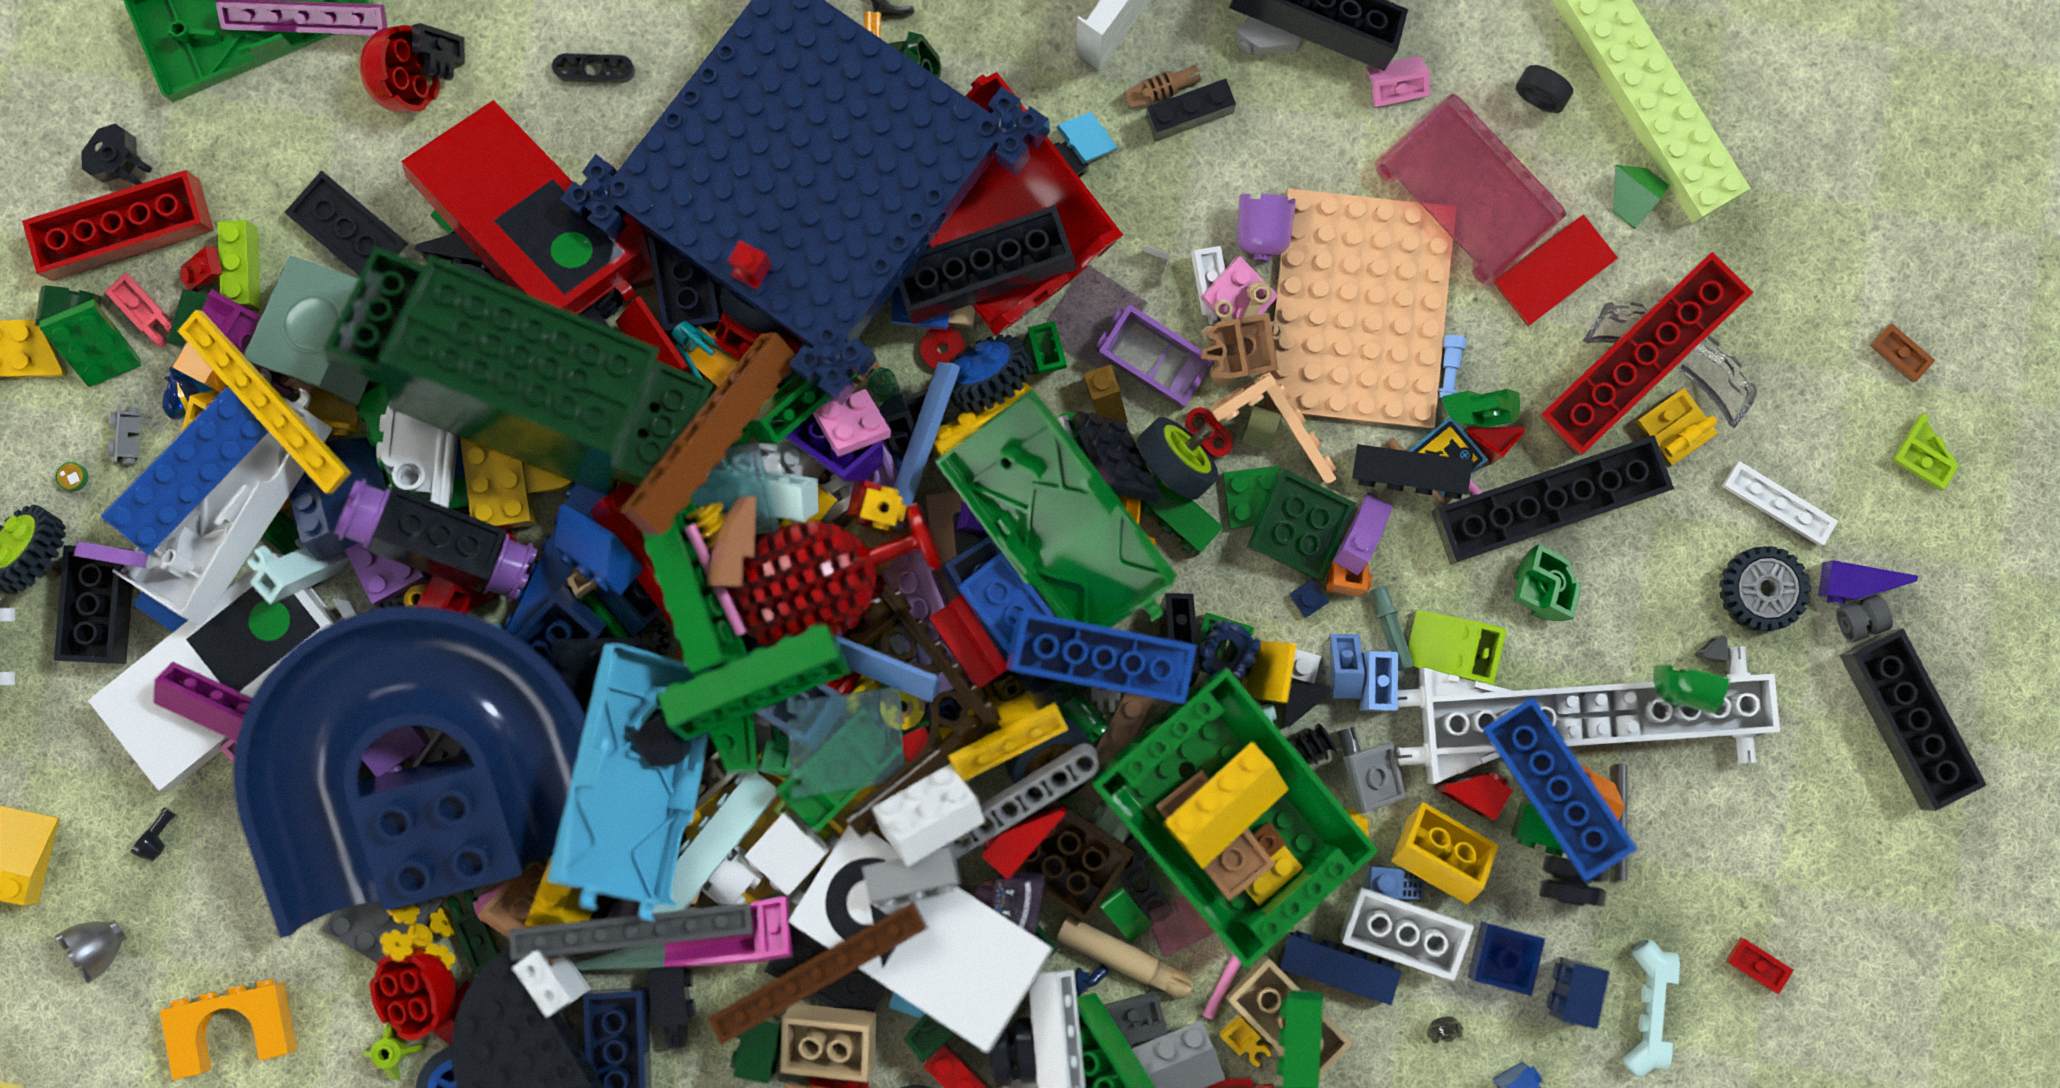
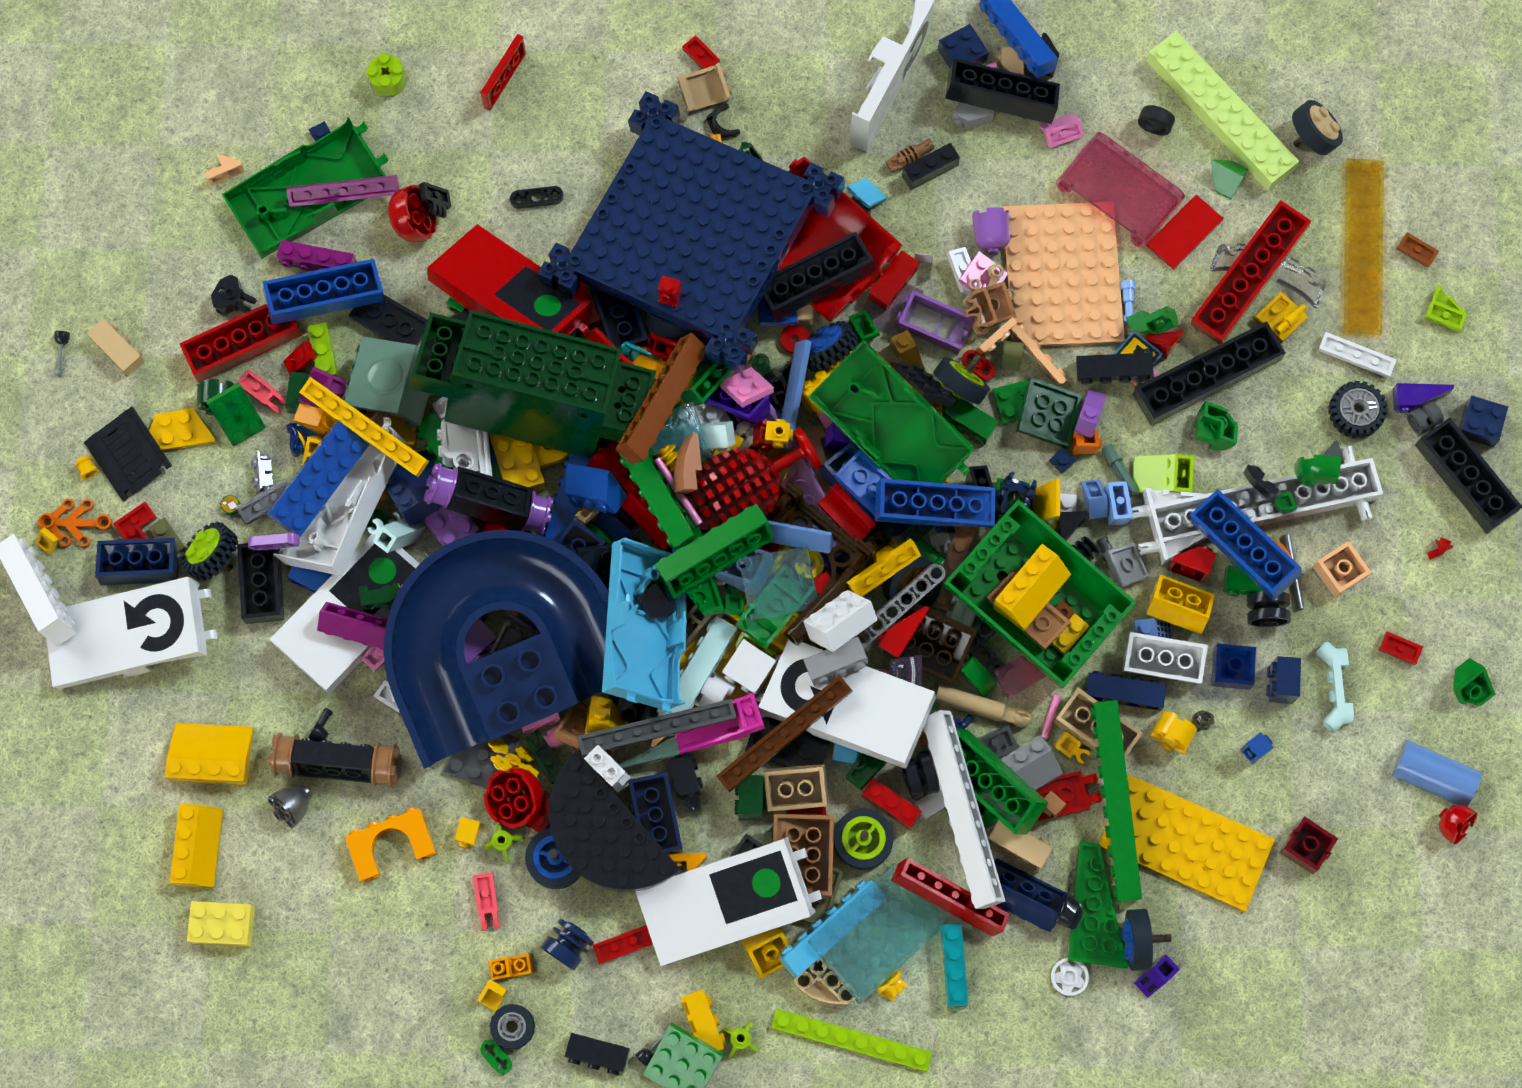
camera: 10 degrees left, 10 degrees down
(102, 876) = (334, 760): none -> brick
(112, 482) = (261, 502): none -> light grey tile
(234, 670) = (378, 598): none -> dark green hips
(241, 173) = (322, 291): none -> blue brick
(249, 116) = (311, 257): none -> magenta brick
(342, 1029) = (467, 833): none -> yellow brick
(1103, 281) = (893, 280): none -> red brick
(1398, 1046) = (1173, 732): none -> yellow brick
(1593, 681) = (1254, 476): none -> black slope
(1630, 724) = (1285, 503): none -> green tile
(1695, 835) = (1341, 569): none -> light nougat brick
(1787, 139) = (1316, 128): none -> black wheel
(1821, 334) = (1363, 247): none -> clear yellow plate
(1853, 819) = (1443, 545): none -> red plate
(1856, 1037) = (1472, 683): none -> green slope
(1950, 637) = (1483, 421): none -> dark blue brick

